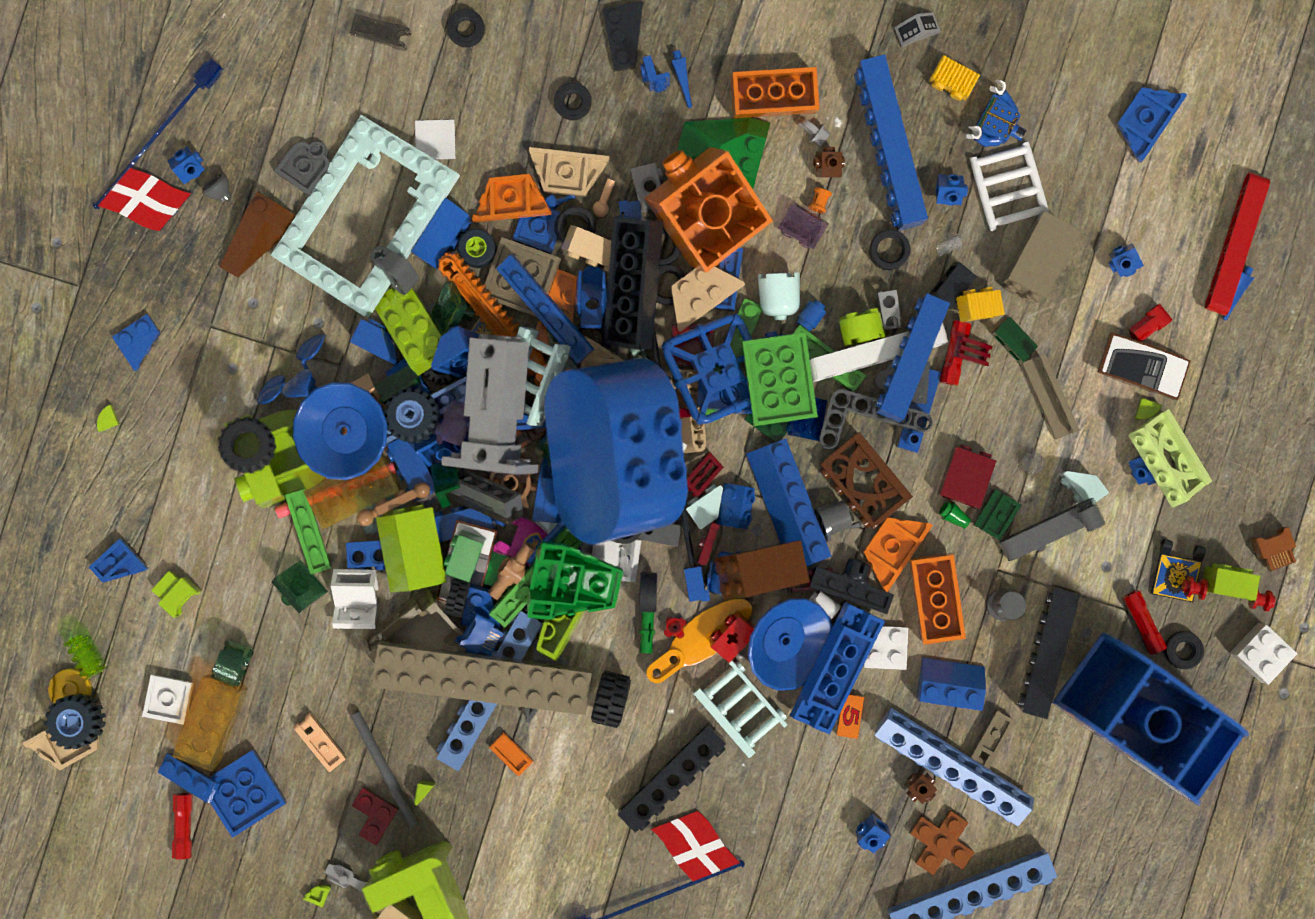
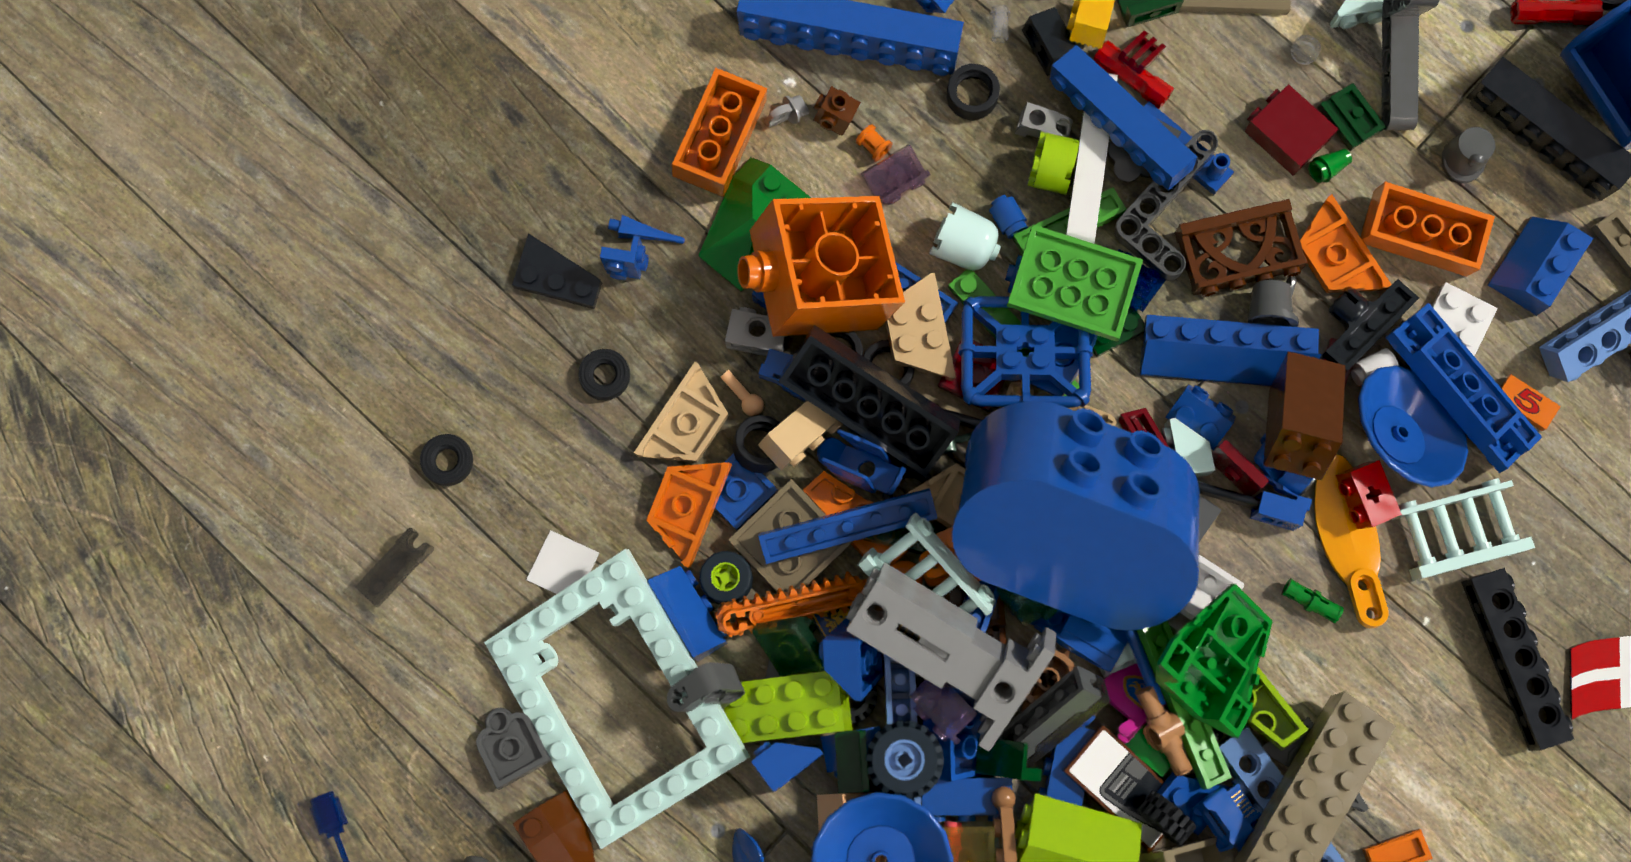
camera: 65 degrees left, 10 degrees down
(464, 556) = (1118, 781): piece -> none
(553, 203) = (717, 455): blue hand -> none
(610, 699) = (1386, 685): black tyre -> none
(648, 592) = (1266, 572): black tyre -> none
(670, 623) = (1319, 555): red plate -> none

